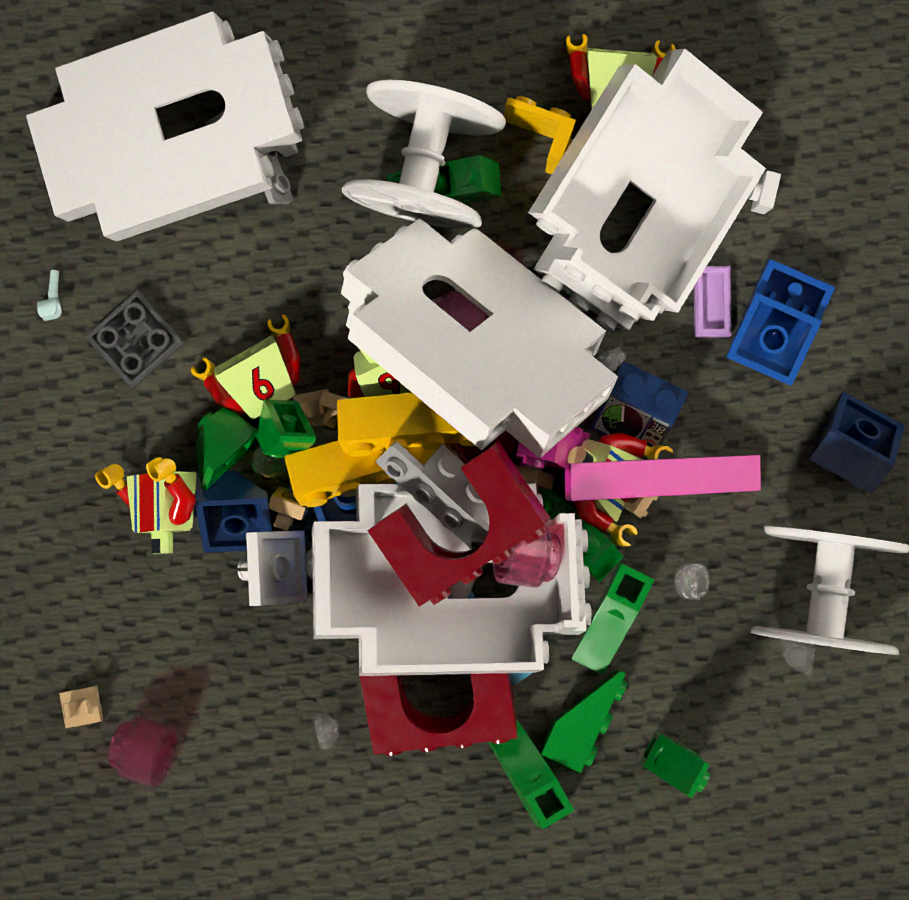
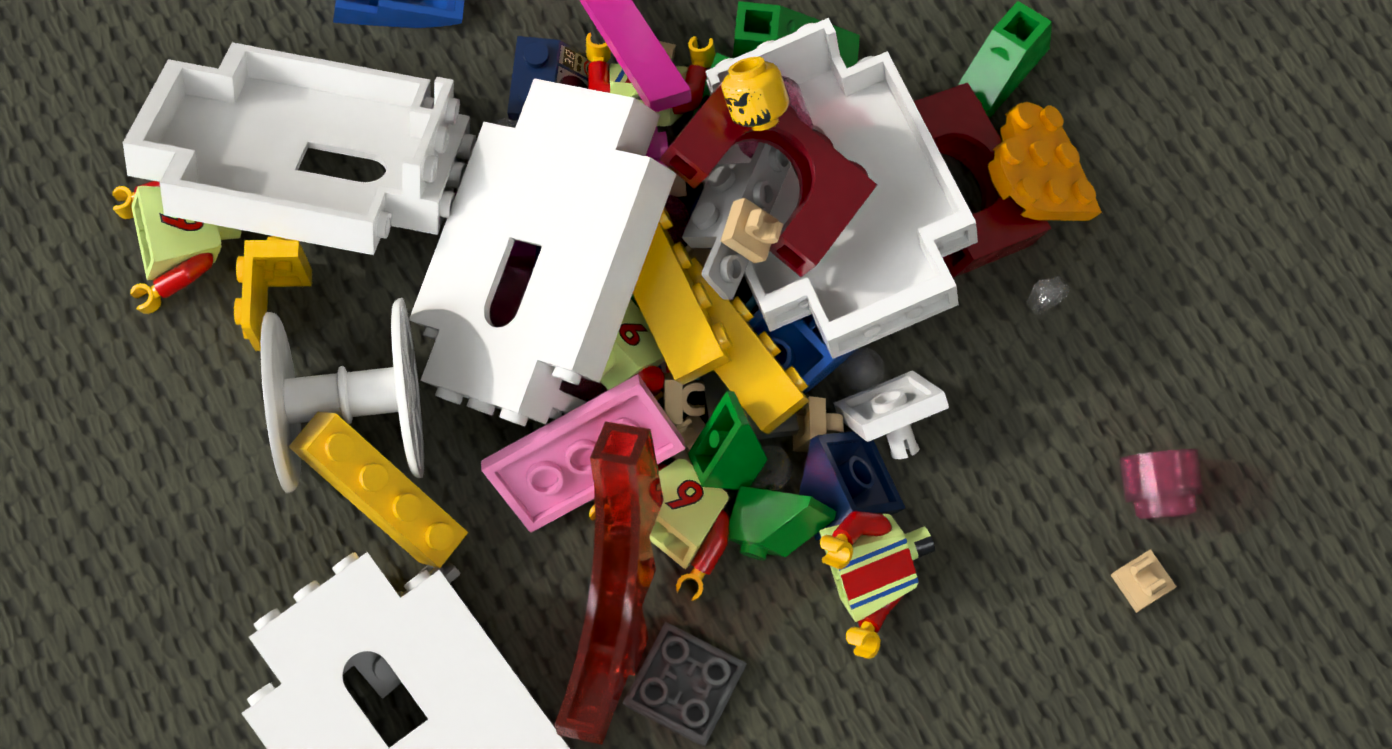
camera: 115 degrees left, 15 degrees down
(255, 328) = (622, 569): none -> clear red arch
(318, 320) = (551, 467): none -> bright pink plate
(345, 158) = (378, 489): none -> yellow brick
(416, 492) = (750, 230): none -> tan tile
(428, 770) = (1041, 167): none -> light orange plate
(466, 179) = (352, 348): green slope -> none
(507, 526) = (755, 93): none -> yellow head
(577, 727) = (923, 37): green slope -> none
(713, 303) = (410, 55): lavender tile -> none
(765, 192) = (259, 34): white plate -> none

